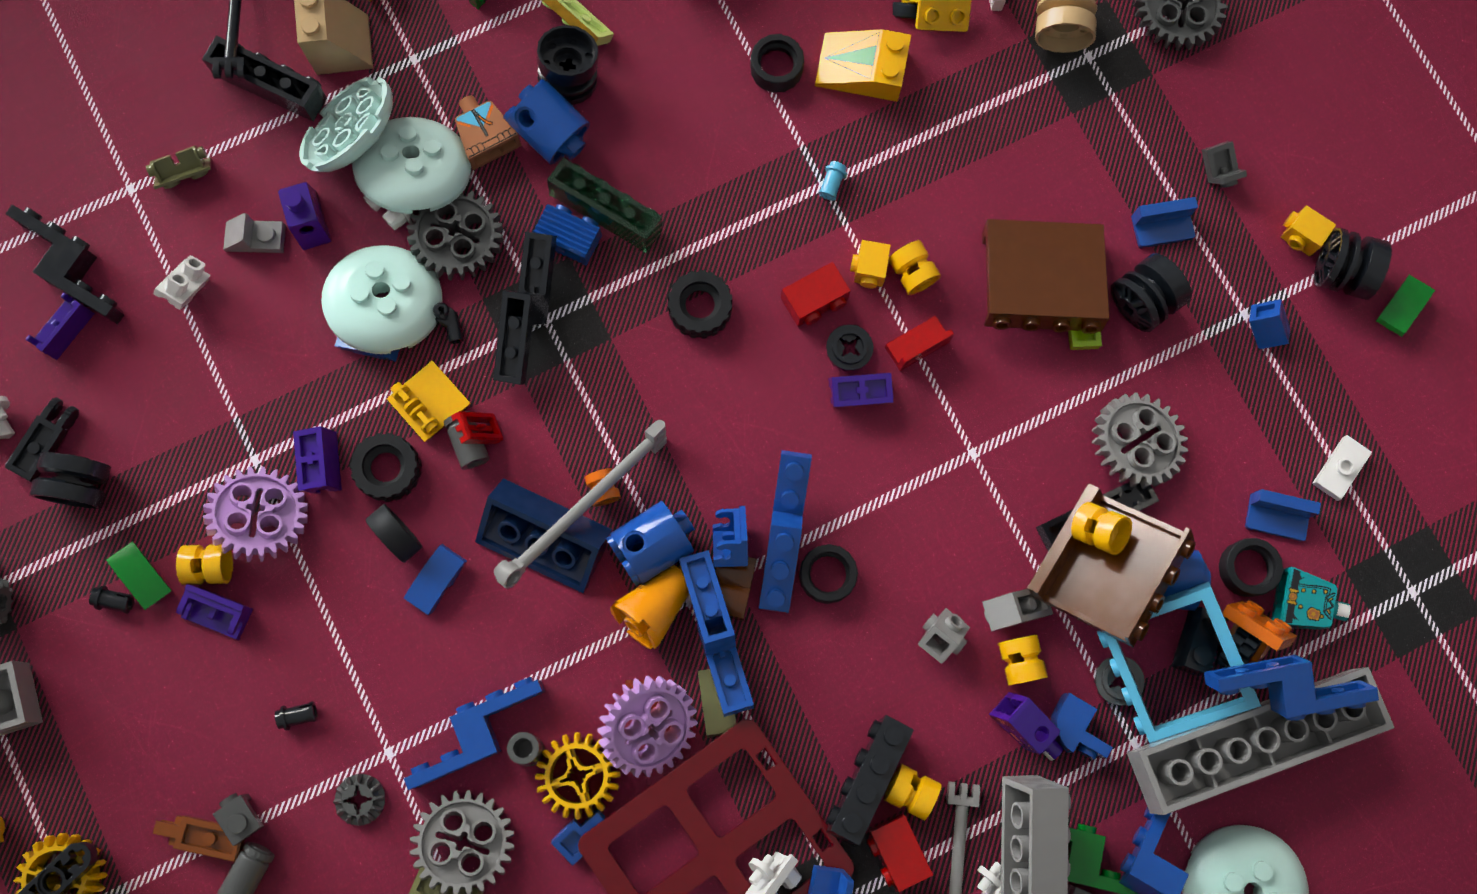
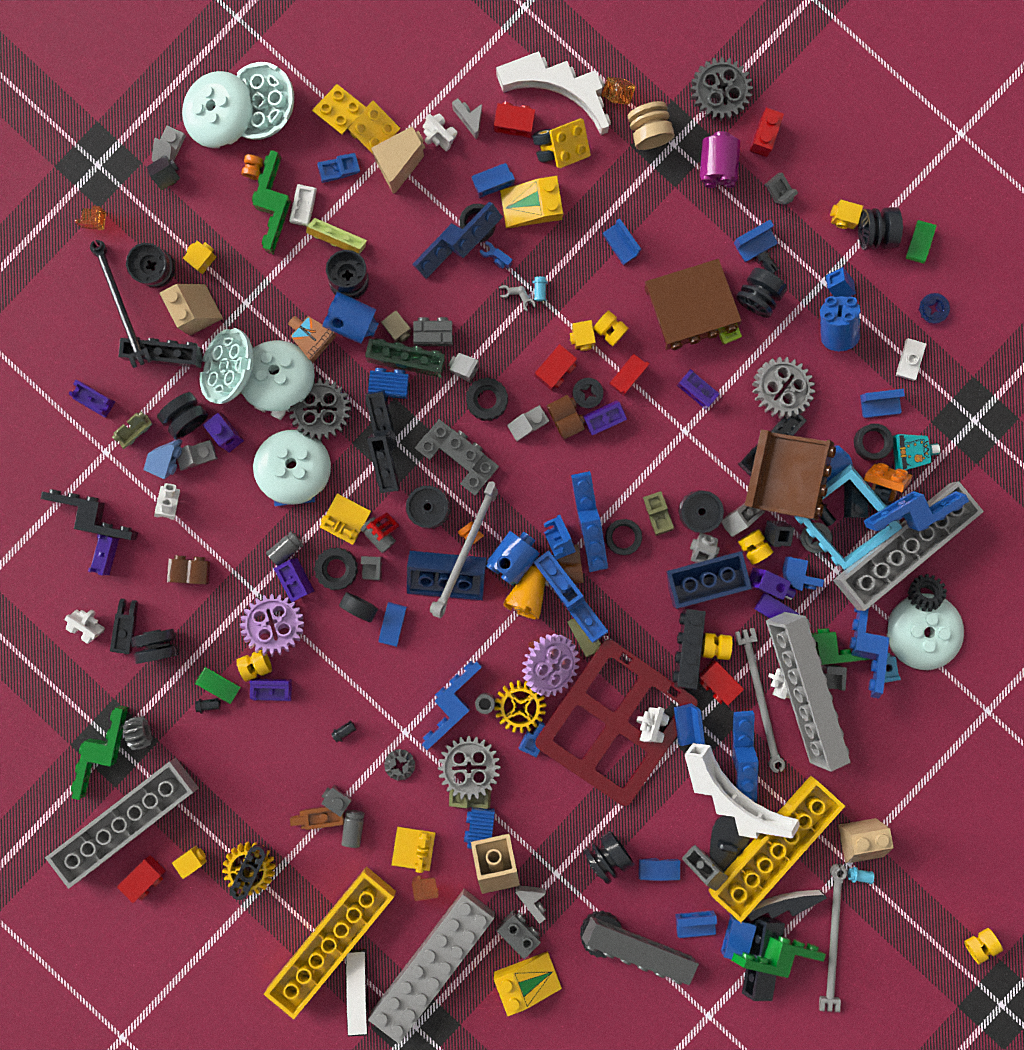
camera: 15 degrees left, 10 degrees up
(143, 108) = (92, 398): none -> dark purple hinge
(170, 393) = (188, 571): none -> reddish brown brick
(204, 222) = (163, 458): none -> medium blue slope
(255, 170) = (182, 415): none -> black wheel
(323, 410) = (285, 548): none -> dark grey piece
(439, 484) = (371, 567): none -> dark grey panel
(450, 321) = (338, 465): black arm -> none
(546, 409) = (439, 510): none -> black wheel
(609, 160) = (397, 327): none -> dark tan brick
(636, 365) = (461, 451): none -> dark grey bracket
(658, 186) = (433, 332): none -> dark grey brick
(684, 247) = (464, 367): none -> light grey slope
(740, 73) = (457, 240): none -> dark blue bracket
(746, 359) = (528, 423): none -> light grey slope
(791, 118) = (500, 258): none -> blue plate
(802, 173) = (518, 290): none -> light grey arm
(805, 369) = (566, 417): none -> reddish brown brick
(819, 16) = (493, 180): none -> blue panel
(892, 558) = (658, 513): none -> olive slope
(934, 682) = (708, 580): none -> dark blue slope
(939, 580) = (692, 503): none -> black wheel
(972, 158) = (622, 242): none -> blue panel
(1011, 399) = (698, 389): none -> dark purple hinge
(1016, 760) = (771, 607): none -> dark purple slope
(1064, 652) = (778, 533): none -> black brick
(1101, 528) = (778, 455): yellow wheel -> none
(1145, 653) = (827, 516): none -> black pin
(1148, 94) = (720, 160): none -> magenta cylinder
(1170, 250) = (767, 262): none -> black pin
(1226, 81) = (766, 132): none -> red brick
(1254, 373) = (840, 323): none -> blue cylinder
(1277, 816) = (931, 584): none -> black tyre
(1410, 407) = (942, 306): none -> clear blue gear

